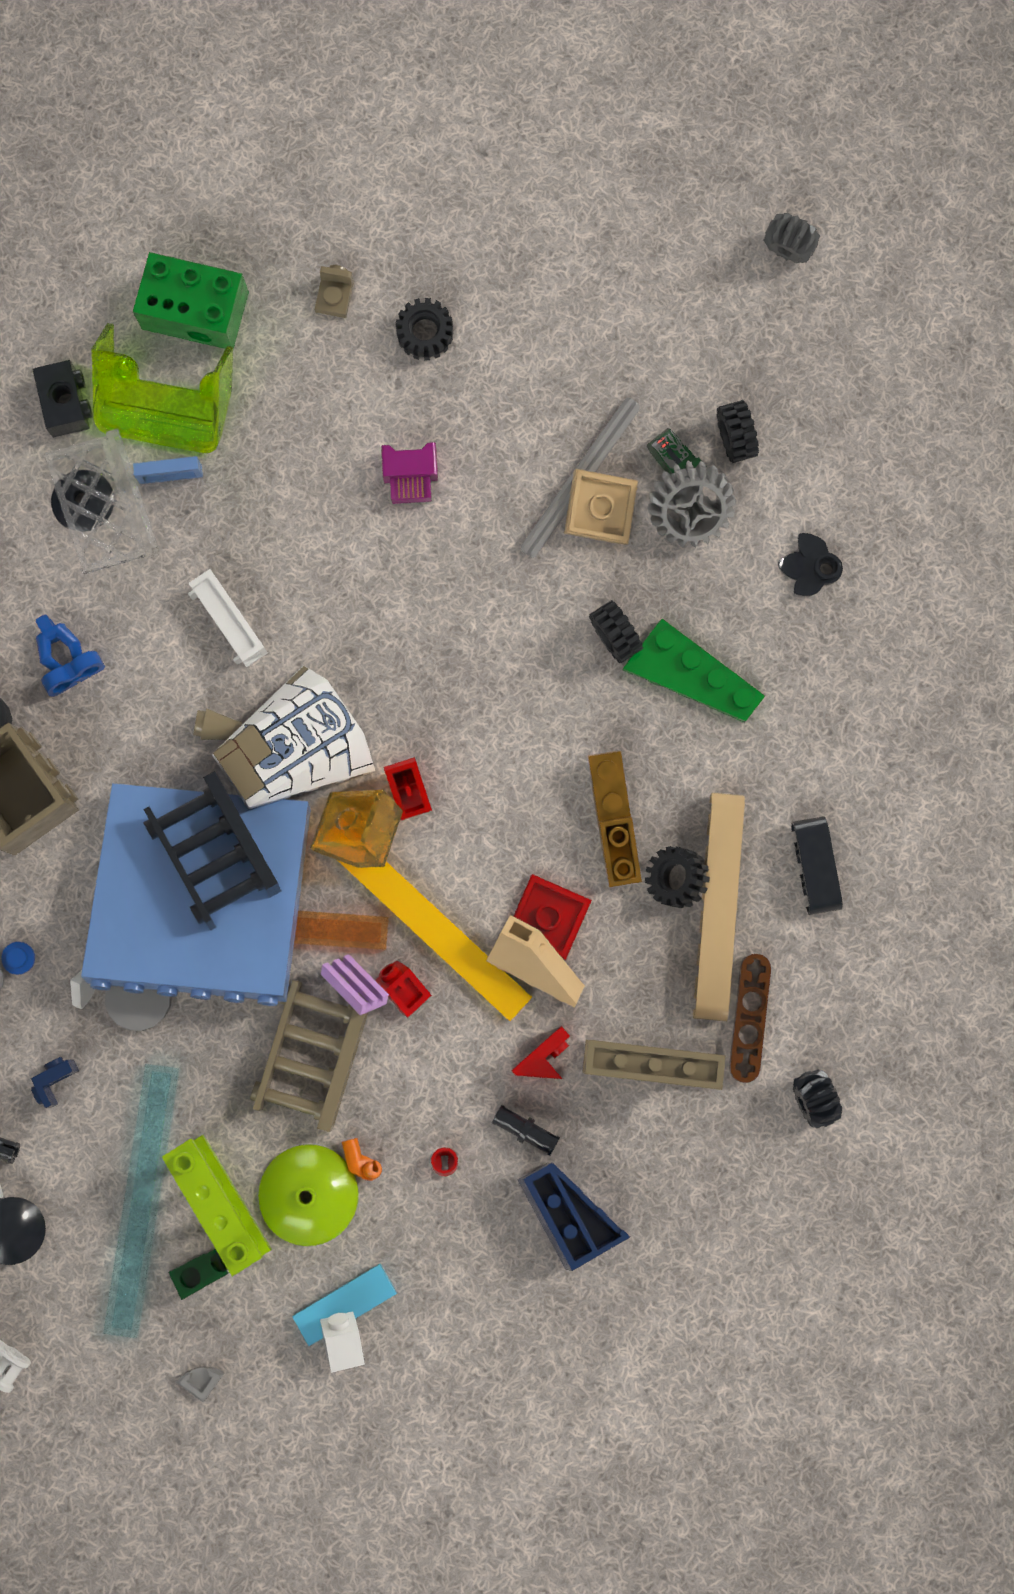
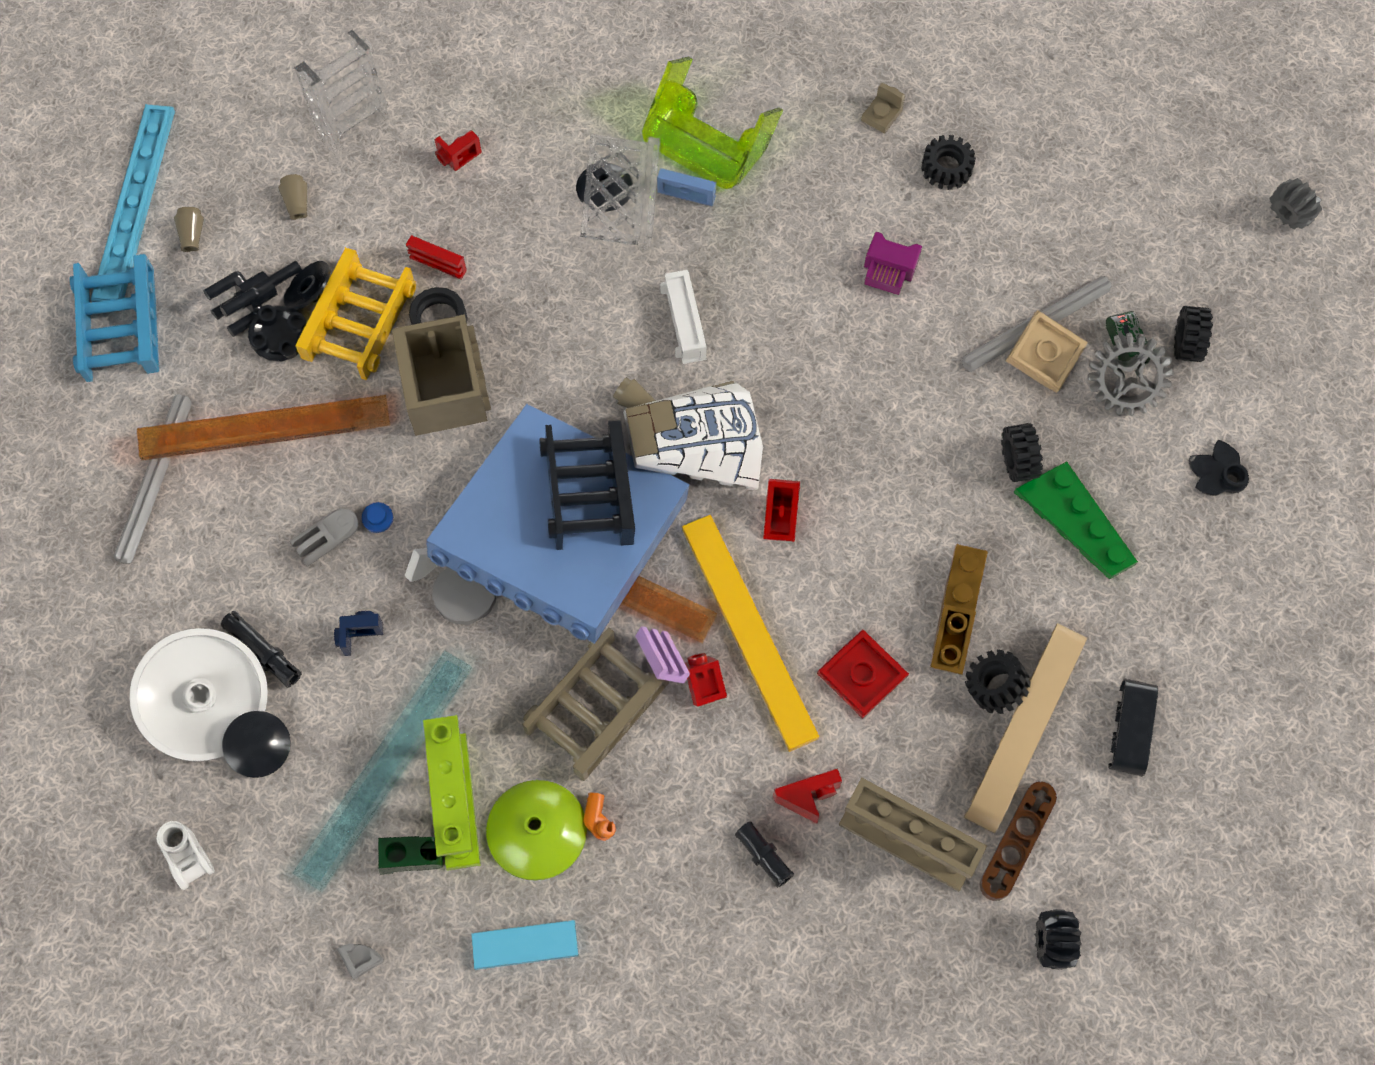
camera: 20 degrees right, 15 degrees down
(52, 383) = (624, 103): black brick -> none
(66, 676) = (524, 310): blue piece -> none
(190, 301) = (762, 69): green piece -> none
(342, 1341) = (508, 974): white brick -> none
(358, 827) = (724, 524): clear yellow slope -> none
(436, 1161) = (668, 847): red hinge -> none
(533, 959) = (834, 699): tan slope -> none
(569, 1217) = (772, 950): dark blue wedge -> none

